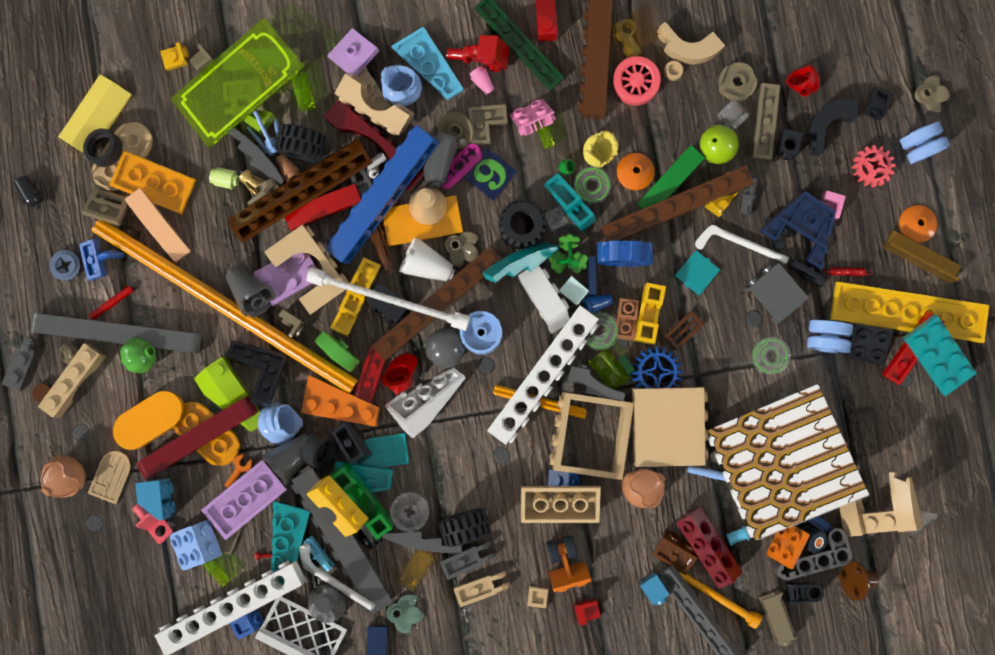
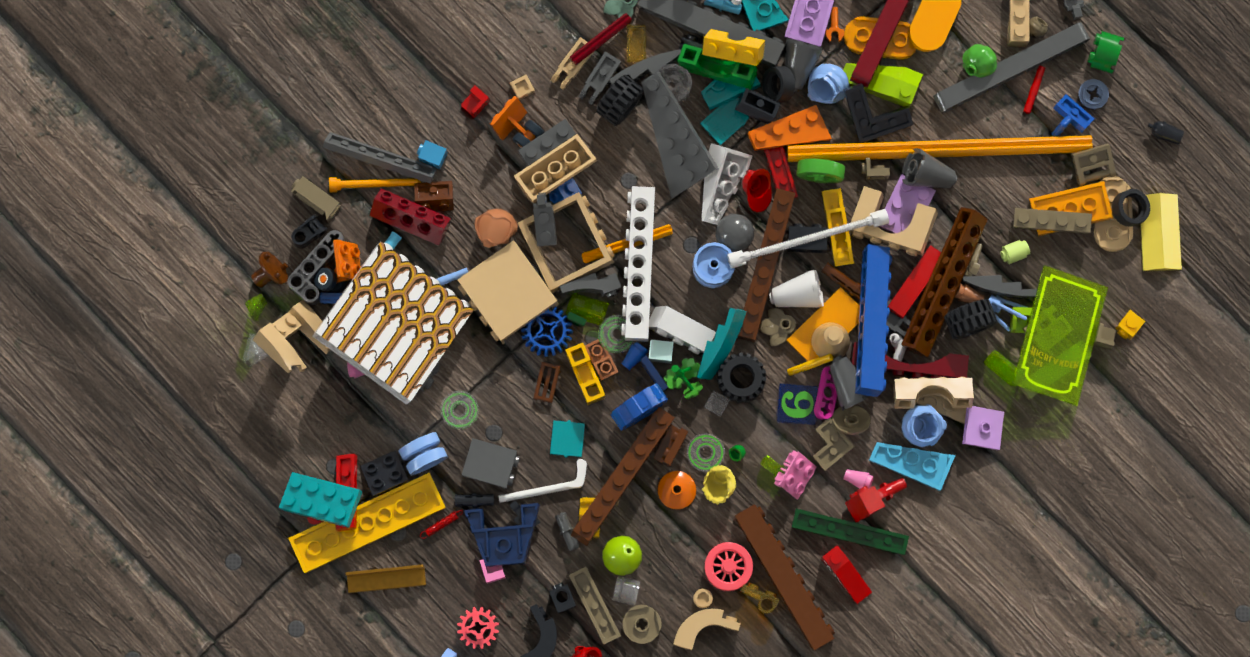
camera: 145 degrees right, 5 degrees down
(27, 291) = (1105, 52): none -> green brick
(157, 225) = (1040, 175): light nougat slope -> none
(175, 181) = (1052, 220): none -> dark tan plate
(250, 180) = (995, 264): pearl gold piece -> none
(441, 452) = (680, 147): none -> dark grey wing
(444, 593) = (600, 39): none -> dark red axle
(458, 196) = (810, 364): none -> yellow piece
(551, 532) = (546, 142): none -> dark grey arch
(570, 202) = (714, 424): teal slope -> none
(601, 463) = (544, 221): none -> dark grey hinge
(617, 207) = (670, 445): none -> reddish brown bracket
(672, 178) = (642, 500): green slope -> none
(892, 556) = (256, 305): none -> clear neon green slope
(909, 223) = (417, 606): orange dish -> none

